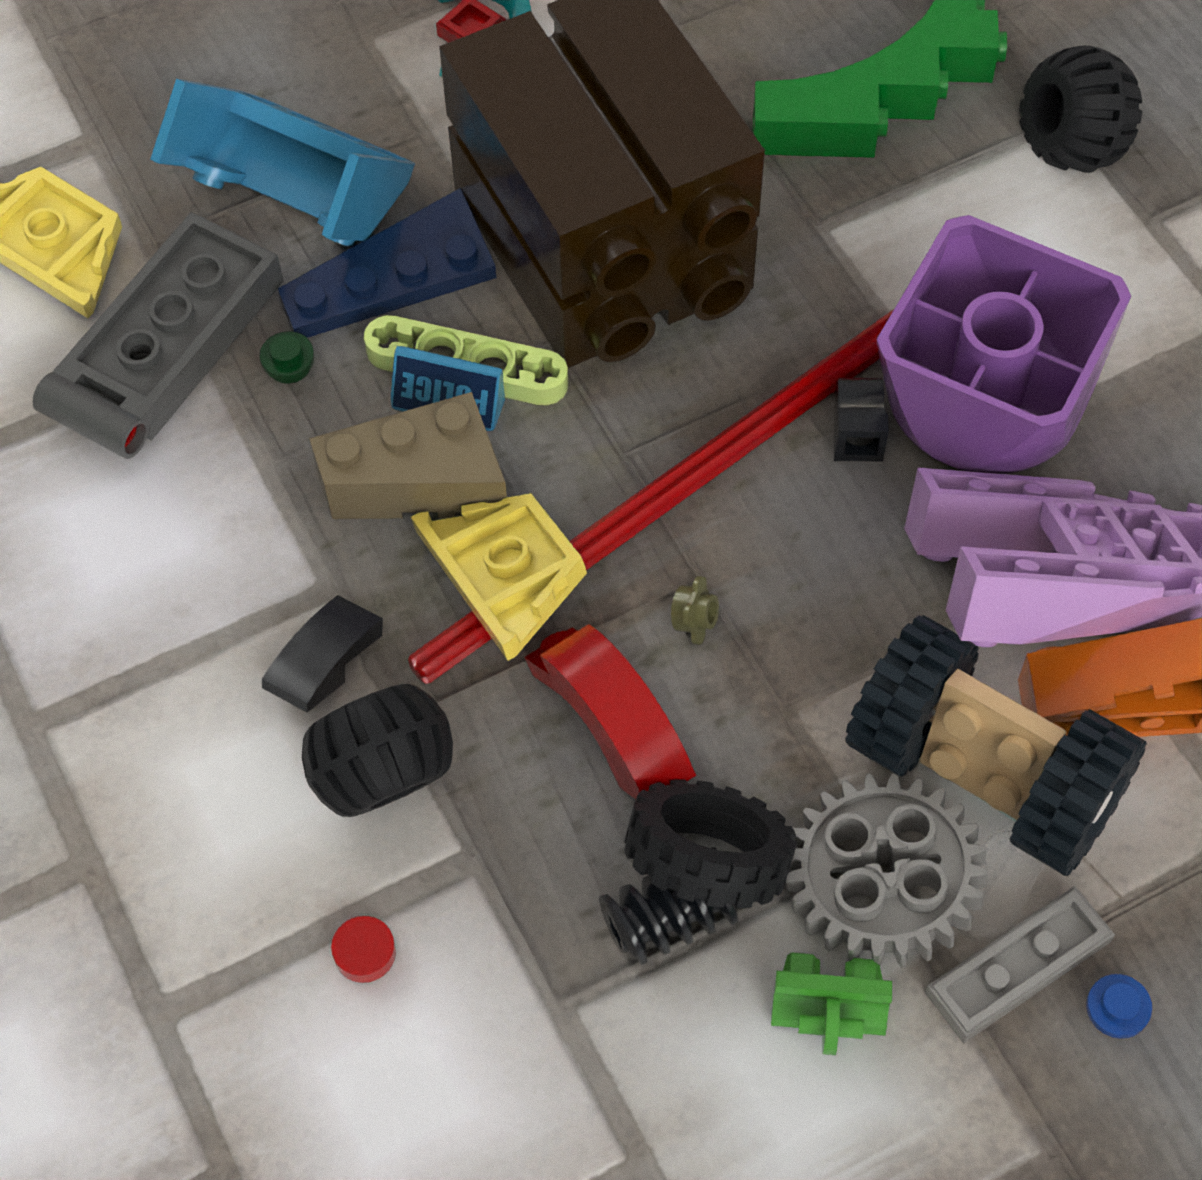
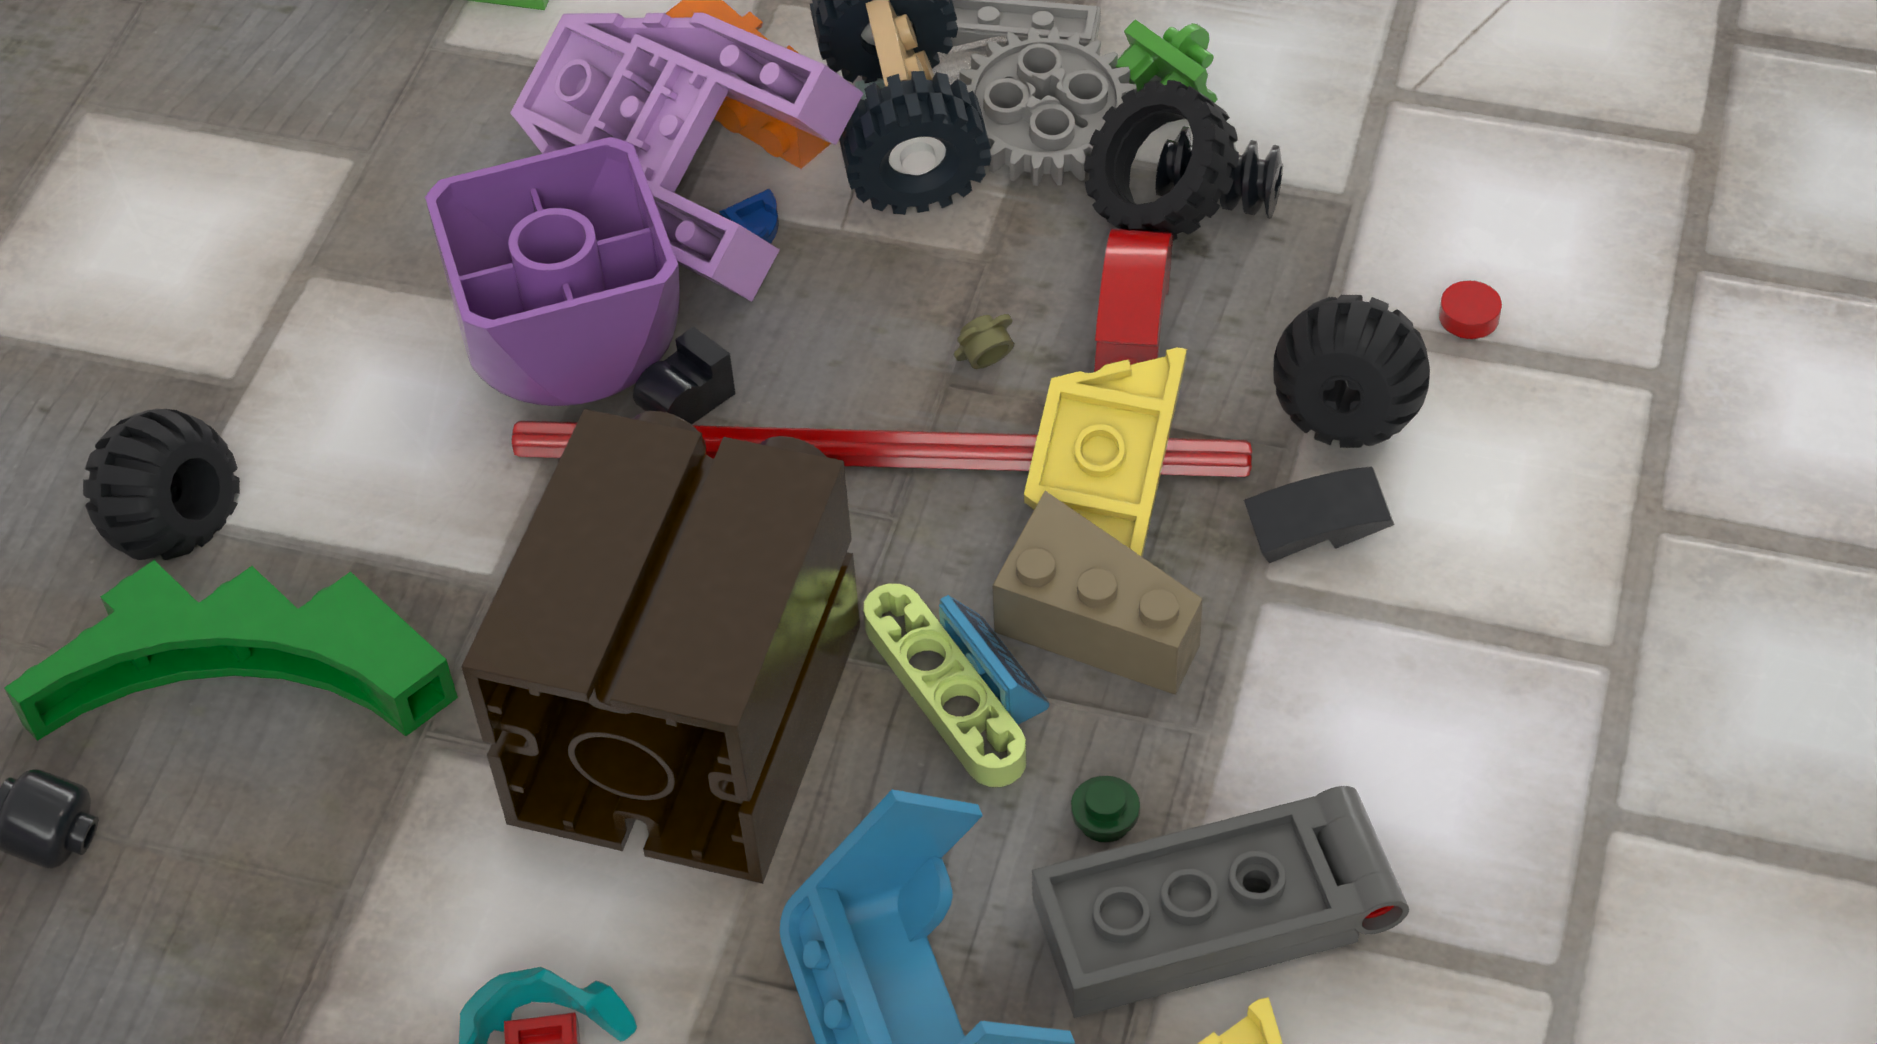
camera: 135 degrees left, 10 degrees down
(398, 267) = (847, 787): dark blue wing -> none

